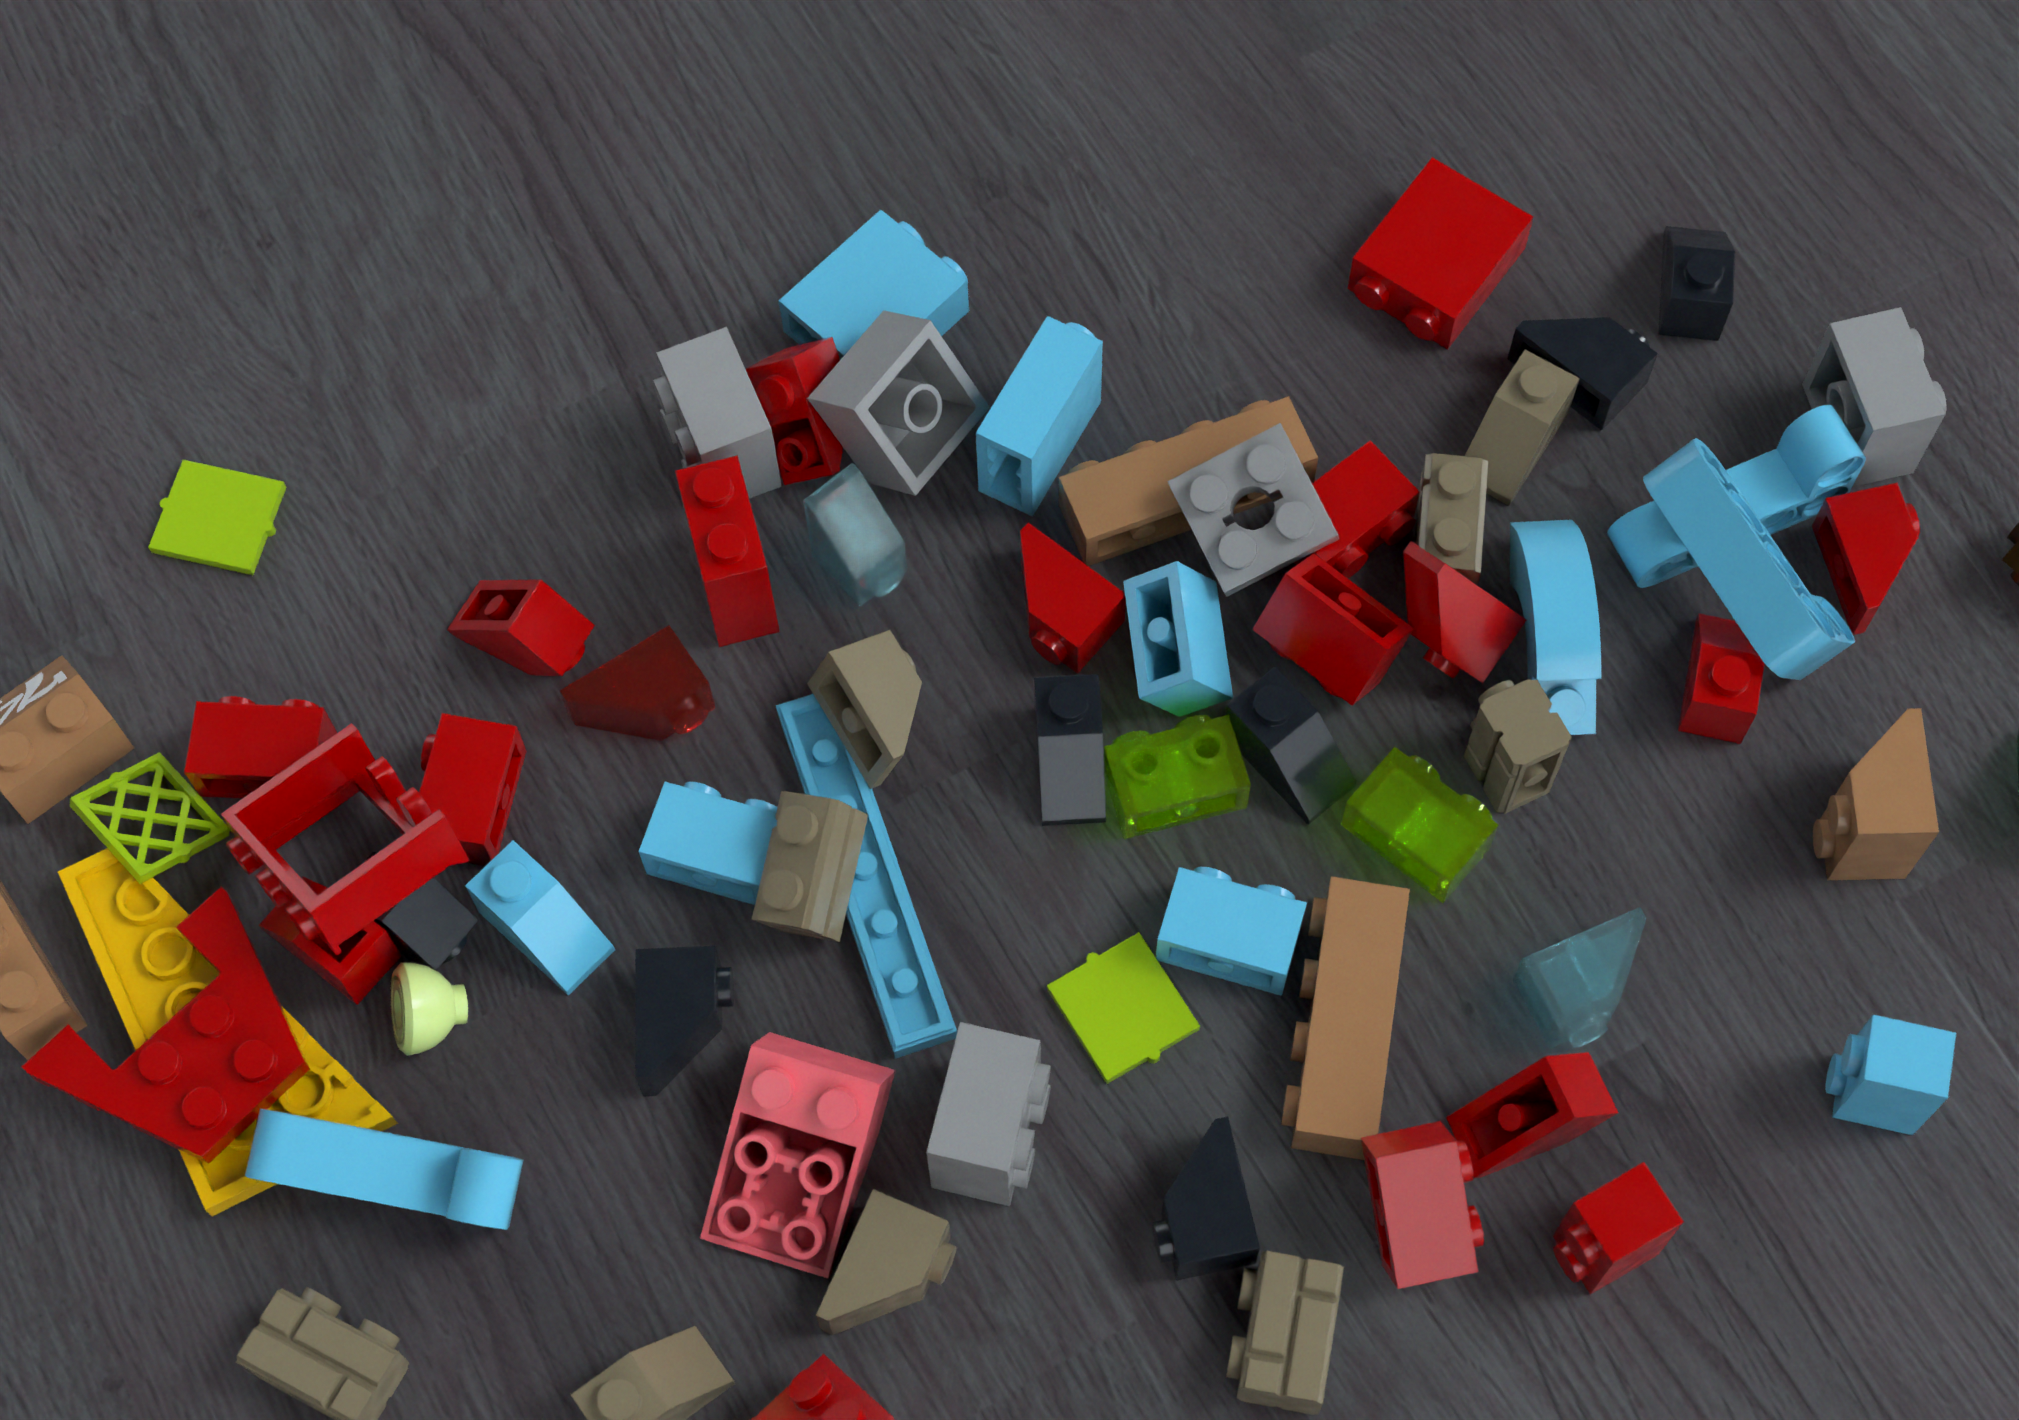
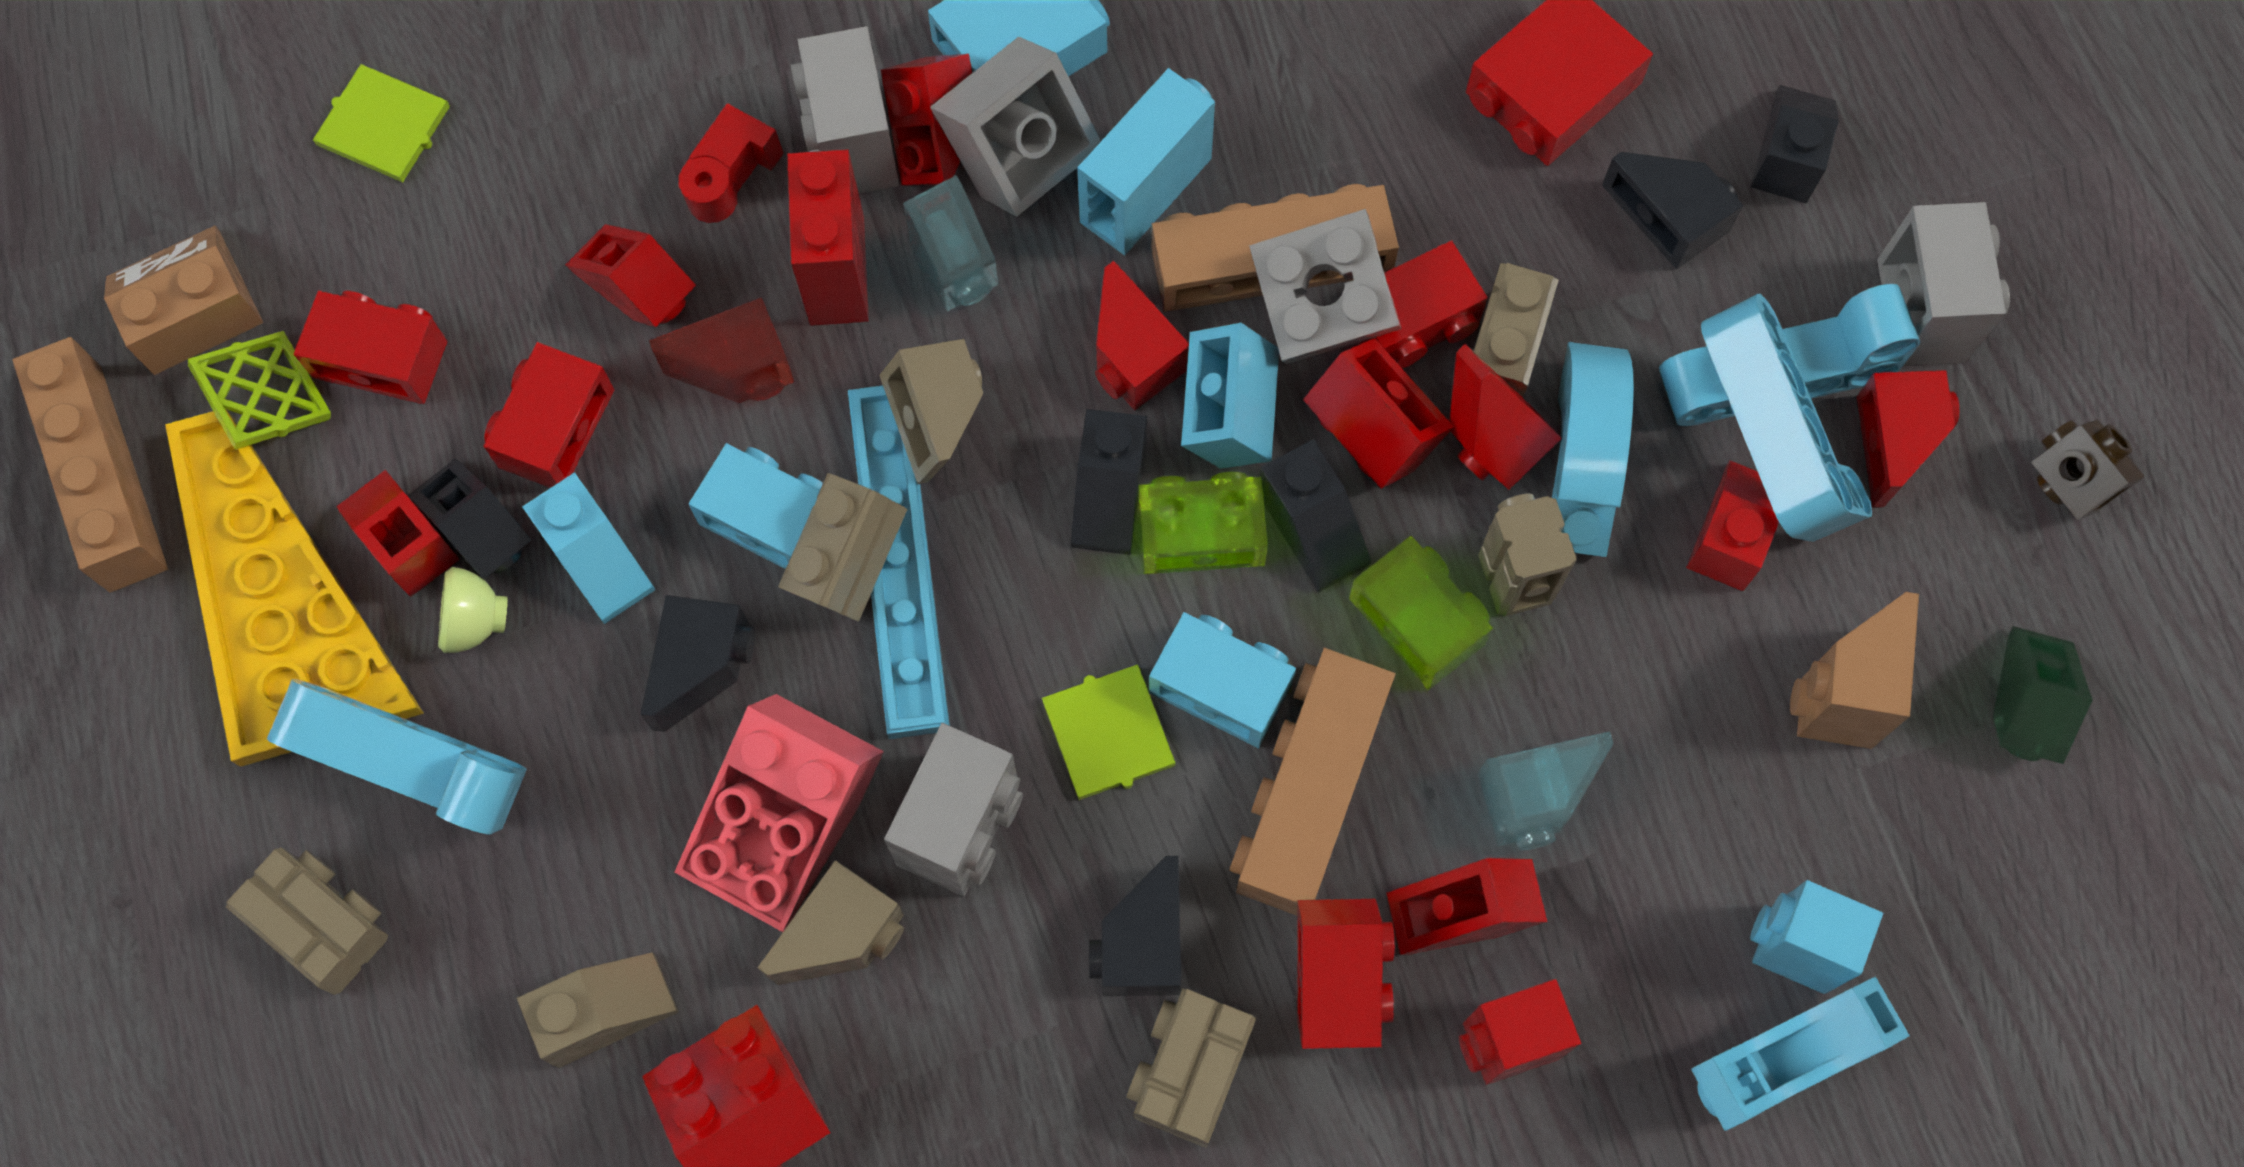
camera: 10 degrees right, 5 degrees up
(204, 1068) = (258, 628): red wing -> none
(308, 793) = (389, 399): red window -> none
(595, 492) = (725, 162): none -> red leg
(1522, 423) = (1599, 249): dark tan slope -> none
(1901, 1195) = (1798, 1053): none -> medium azure arch

